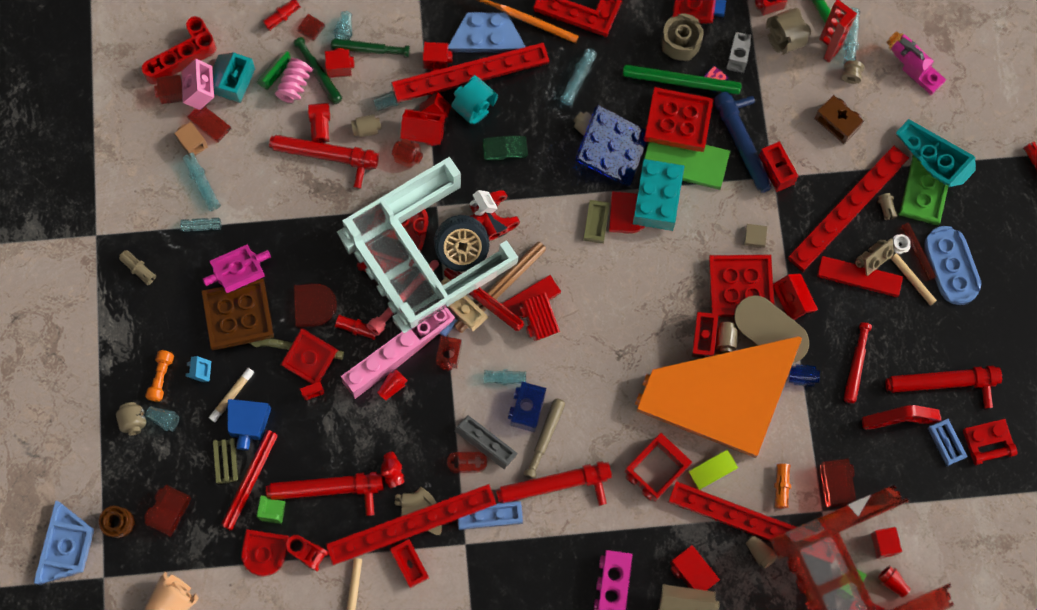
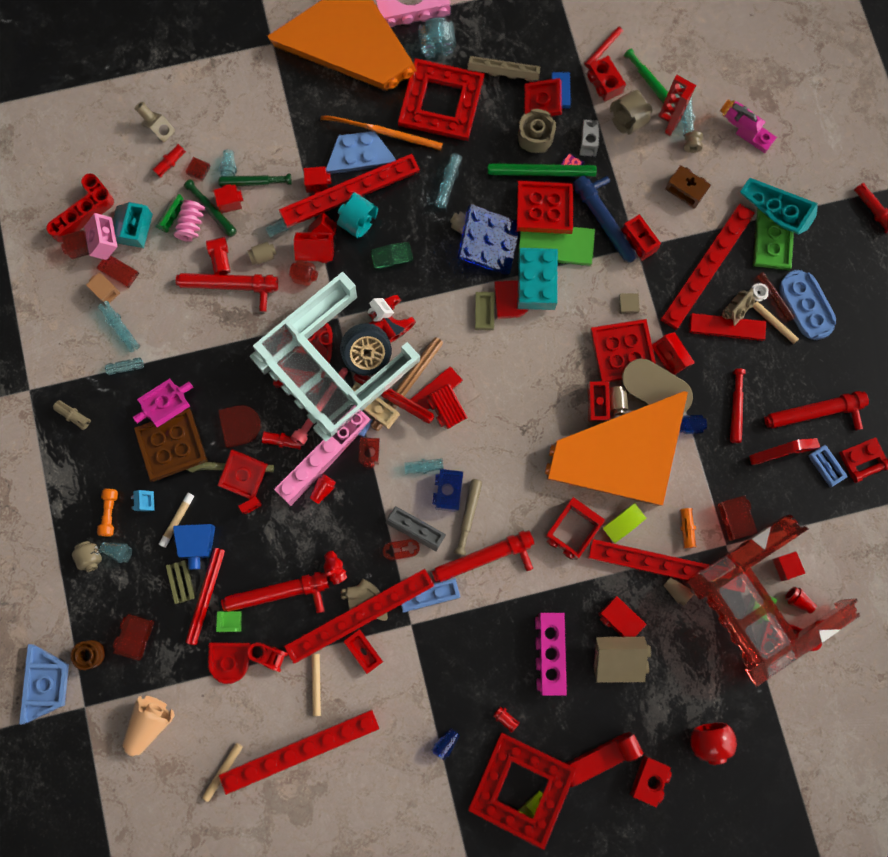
camera: 10 degrees left, 5 degrees up
(887, 206) = (742, 259): dark tan pin -> none

